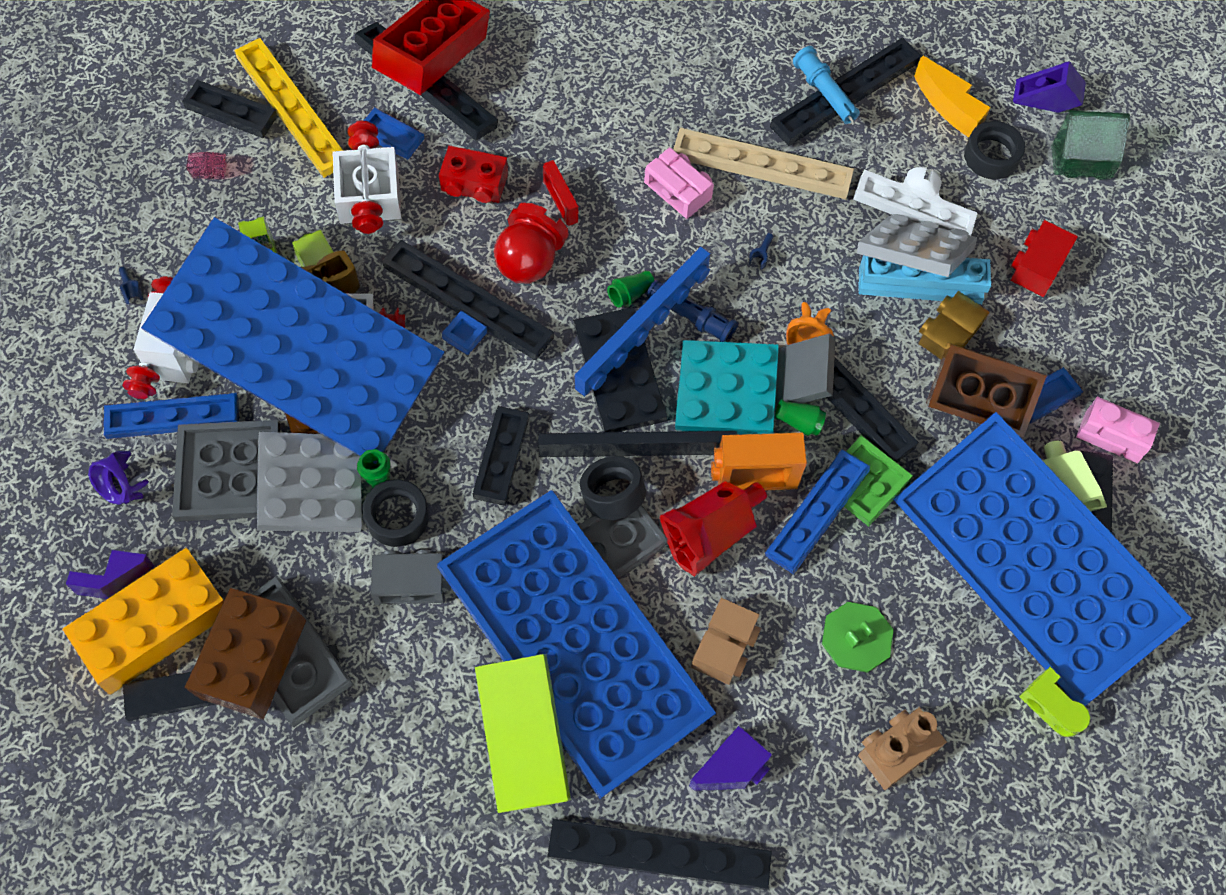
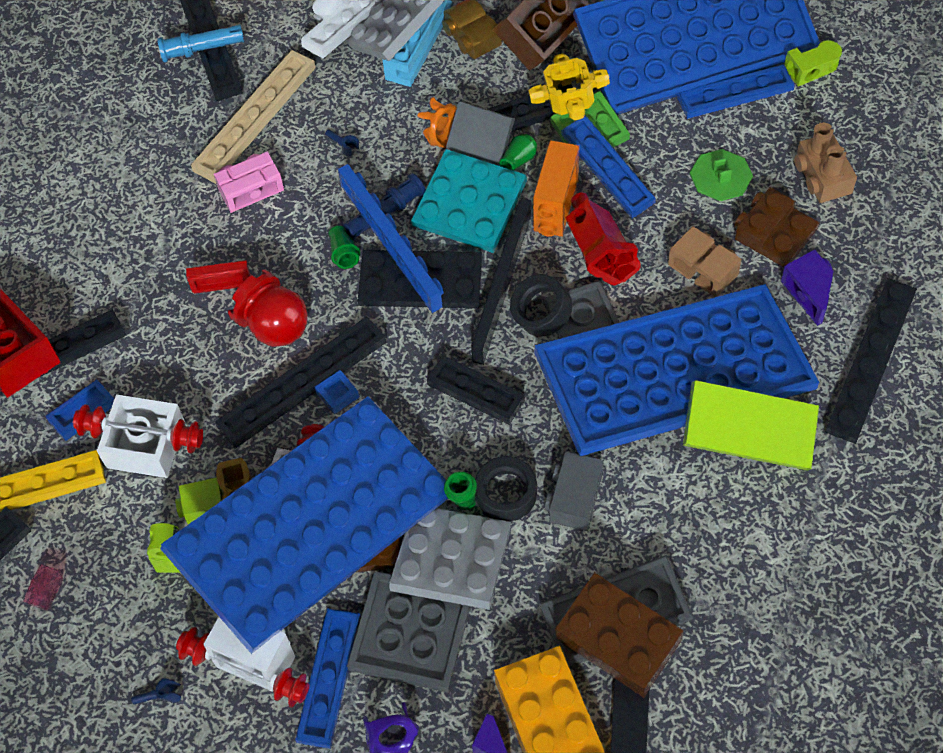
camera: 65 degrees left, 5 degrees down
(473, 174) = (166, 344): red brick -> none
(800, 710) = (775, 227): none -> reddish brown plate
(895, 459) = (563, 72): none -> yellow piece
(982, 627) = (736, 91): none -> blue tile

